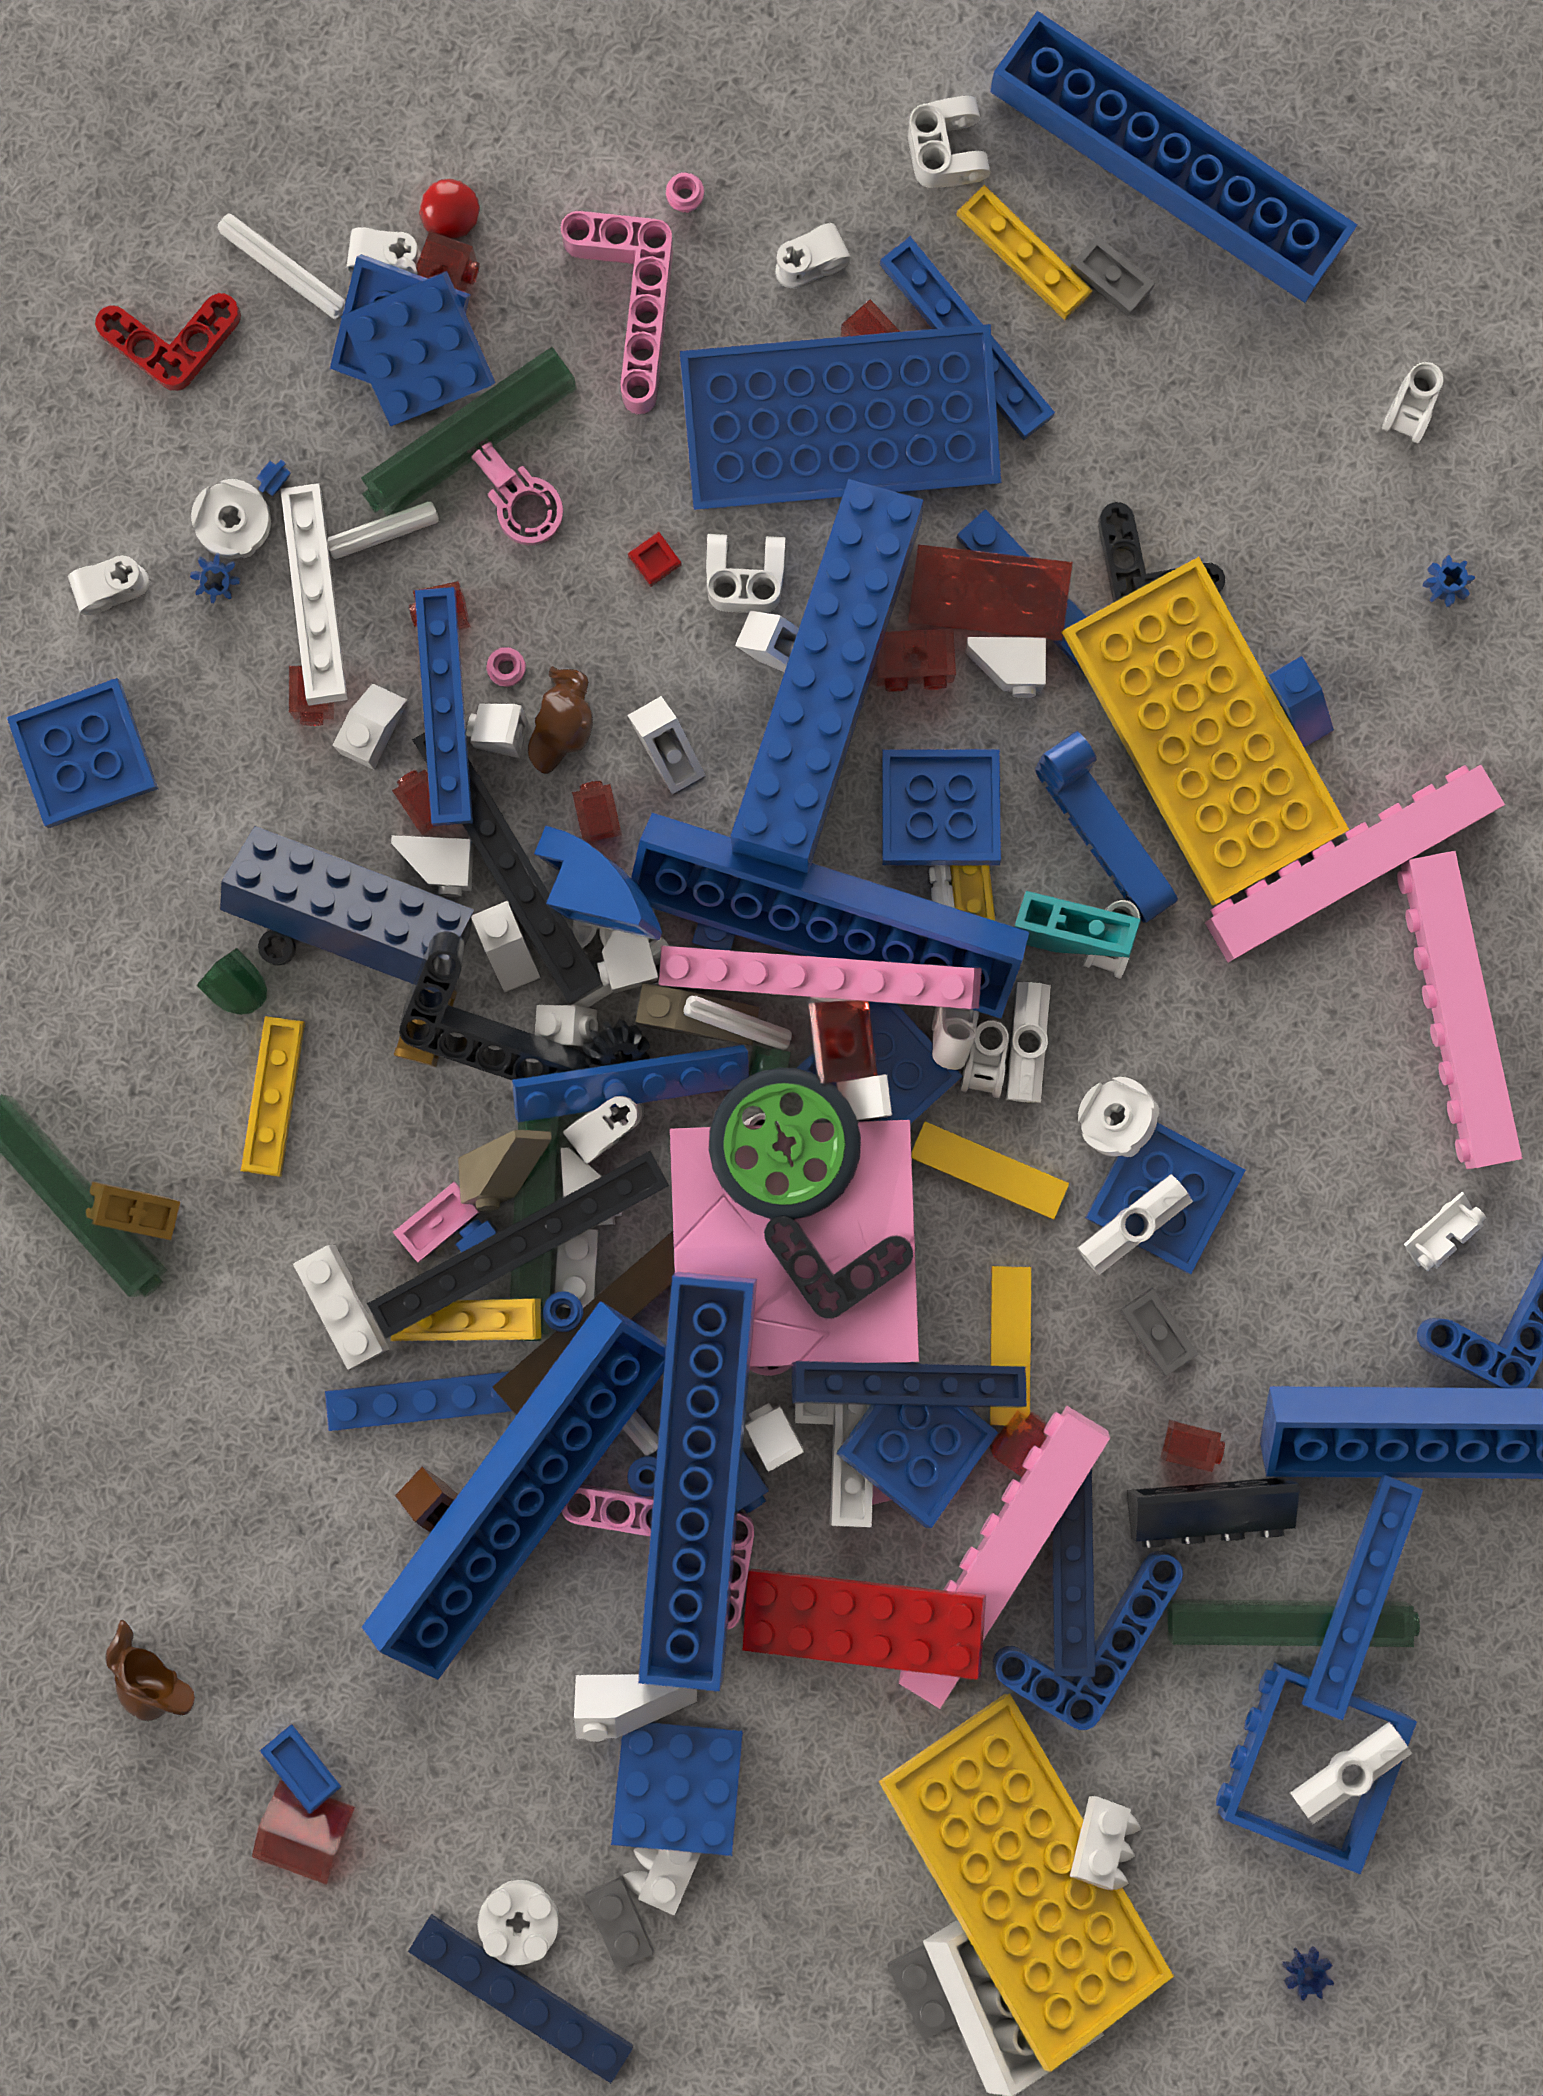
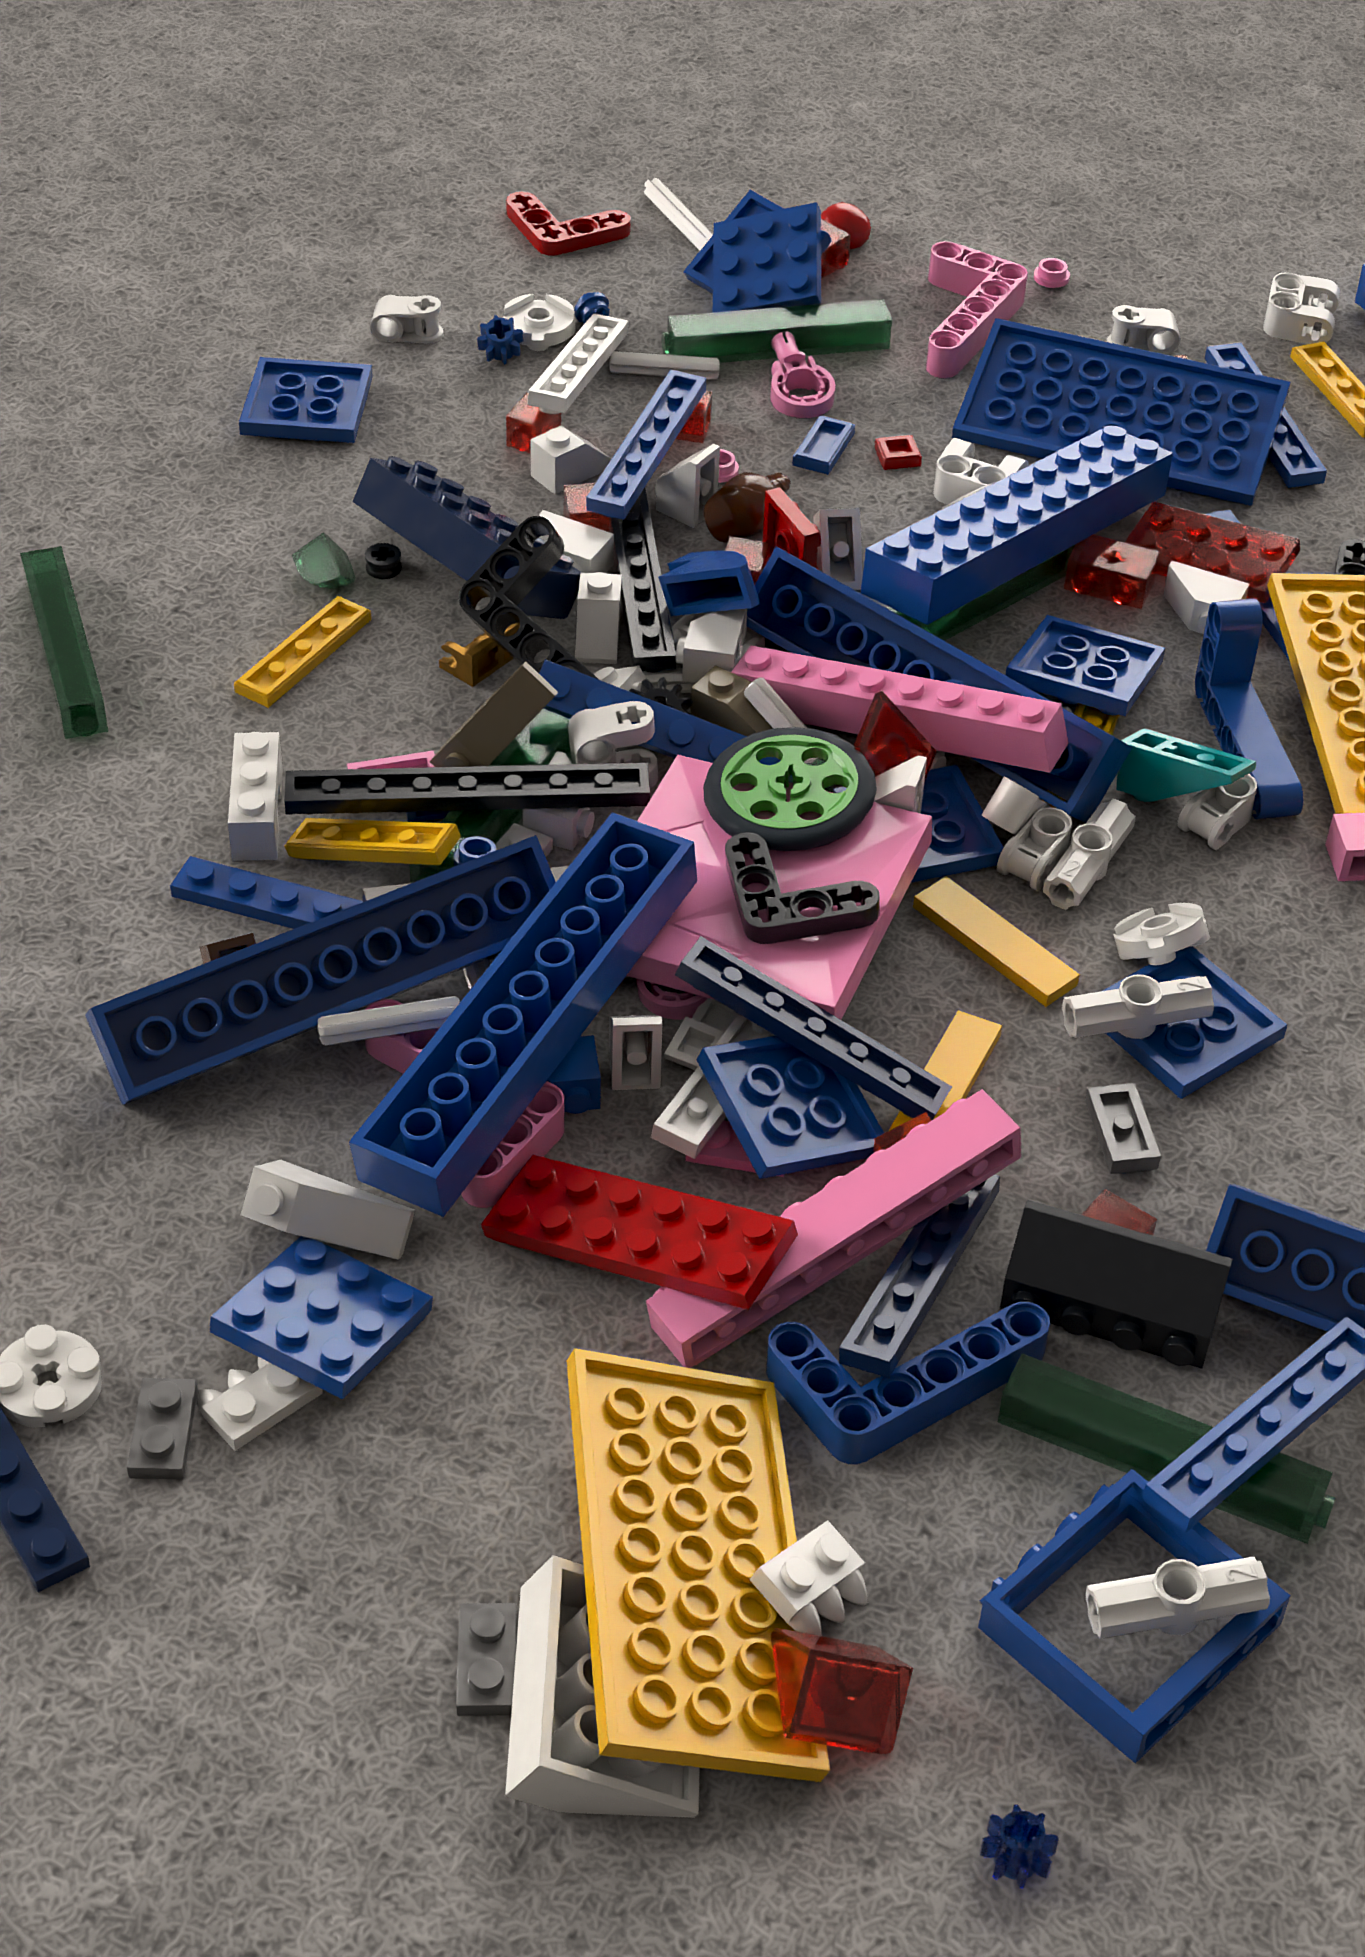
camera: 25 degrees right, 40 degrees down
(133, 1211) = (117, 648): pearl gold hinge -> none
(583, 580) = (823, 444): none -> tile
(590, 1520) = (385, 1021): none -> white axle
(641, 784) = (789, 528): none -> red plate
(1154, 1918) = (839, 1691): none -> clear red slope

